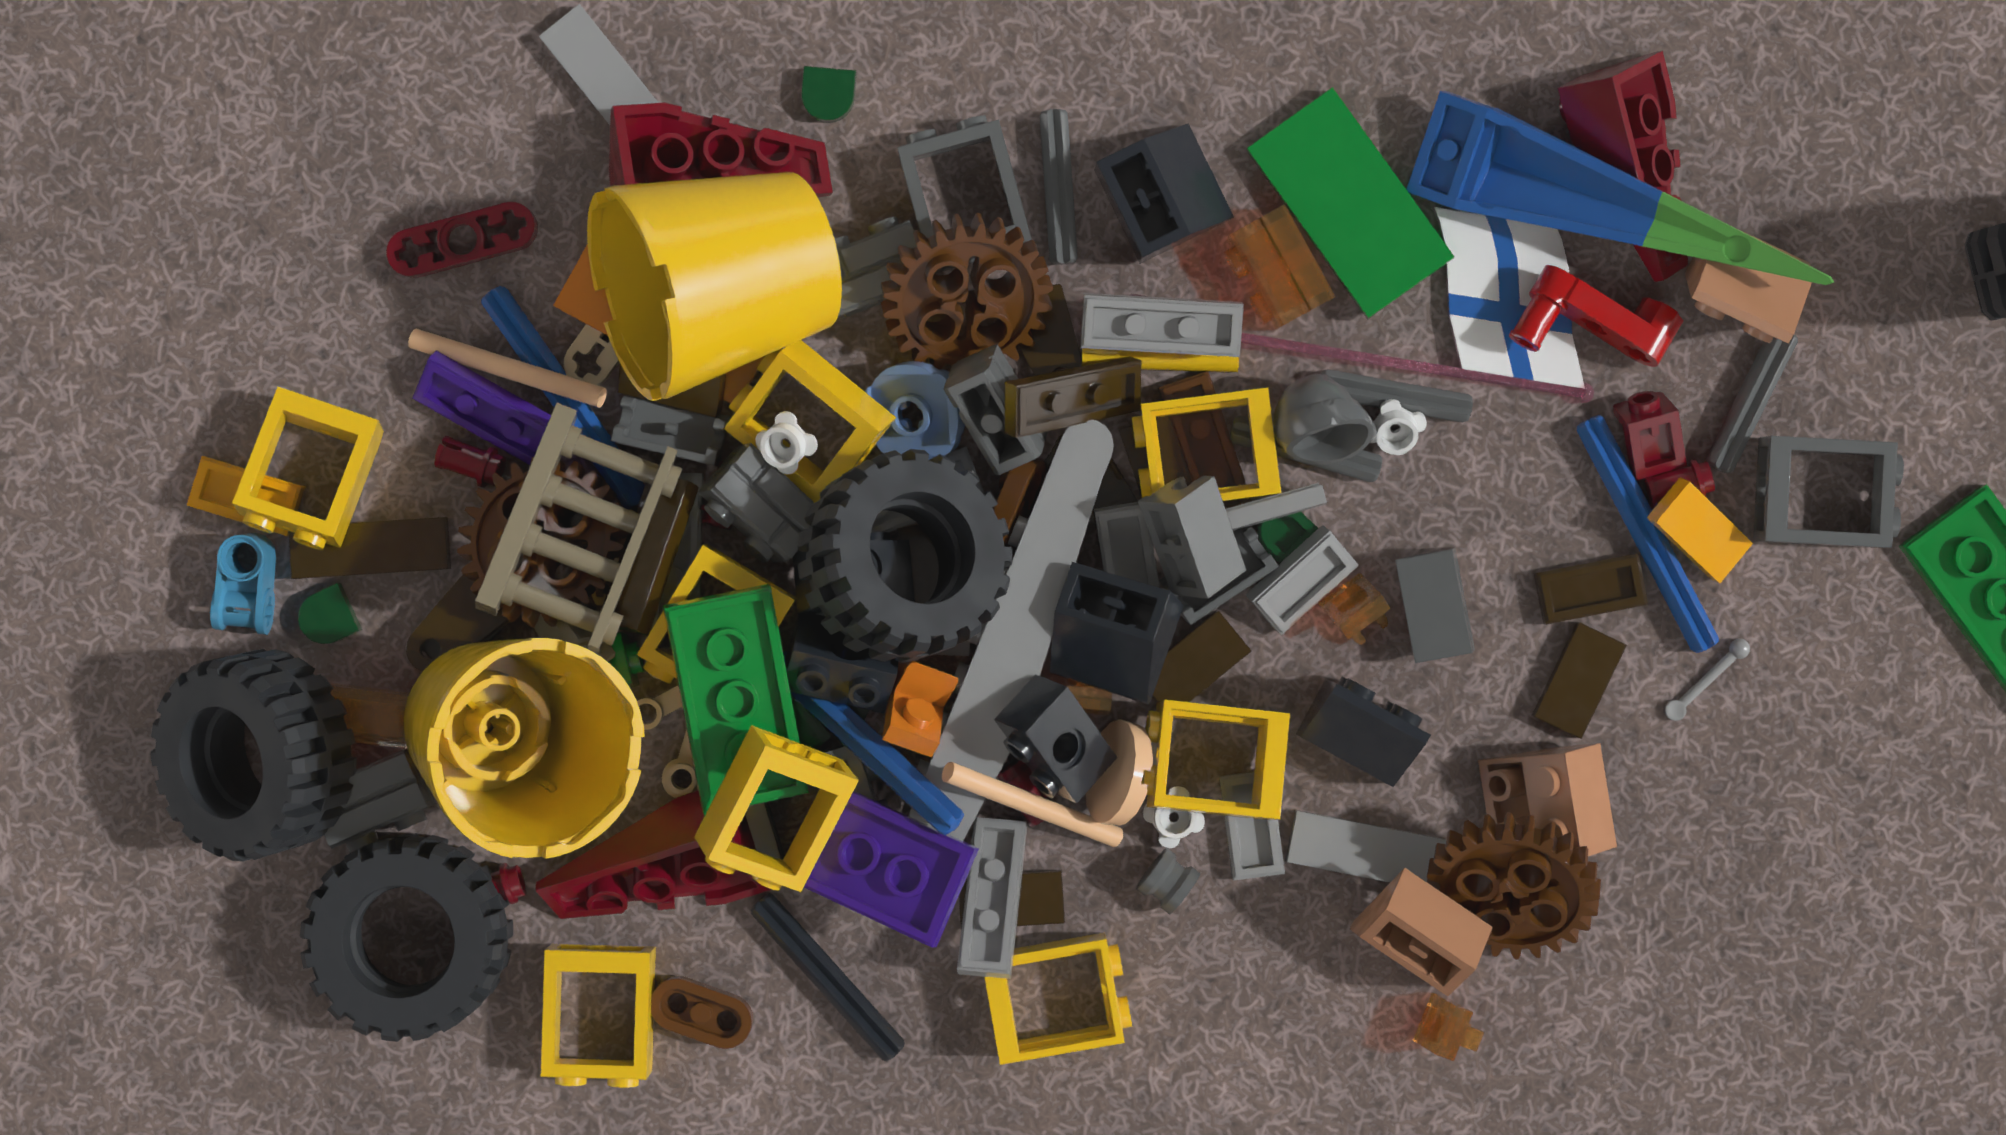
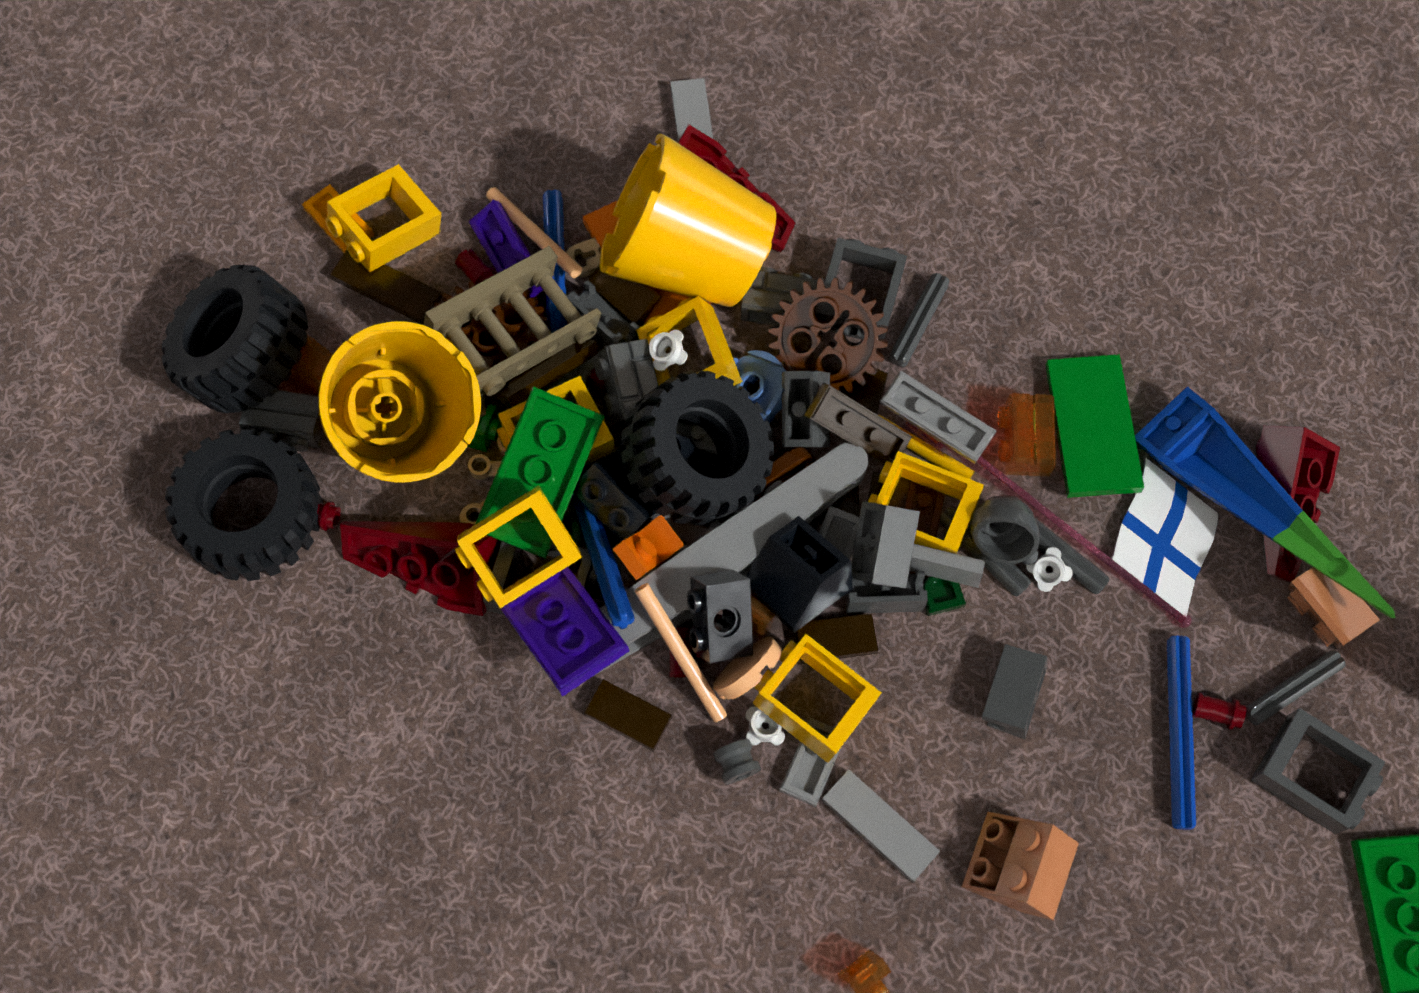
camera: 30 degrees right, 20 degrees down
(244, 588) = (299, 262): dark azure piece -> none
(328, 616) = (335, 308): dark green tile -> none
(428, 262) = (548, 146): dark red beam -> none
(598, 959) = (371, 614): yellow window -> none
(701, 1015) = (388, 665): reddish brown plate -> none
(827, 977) = (480, 694): black axle -> none
(828, 92) = (815, 198): dark green tile -> none
(992, 898) = (616, 700): light grey tile -> none
(1116, 1008) = (579, 773): yellow window -> none
(1162, 191) = (980, 351): black slope -> none
(1302, 580) = (936, 626): light grey tile -> none
(1355, 607) = (959, 661): clear orange tile -> none
(1362, 733) = (923, 736): black slope -> none
(1424, 931) = (887, 891): nougat slope -> none
(1519, 882) = (964, 933): reddish brown gear -> none
(1579, 680) = (1085, 798): dark brown tile -> none
(1590, 588) = (1124, 744): dark brown tile -> none
(1638, 335) = (1236, 599): red beam -> none
(1651, 433) = (1217, 668): dark red bracket -> none
(1676, 709) = (1142, 858): light grey hinge -> none
(1699, 530) = (1219, 745): light orange tile -> none

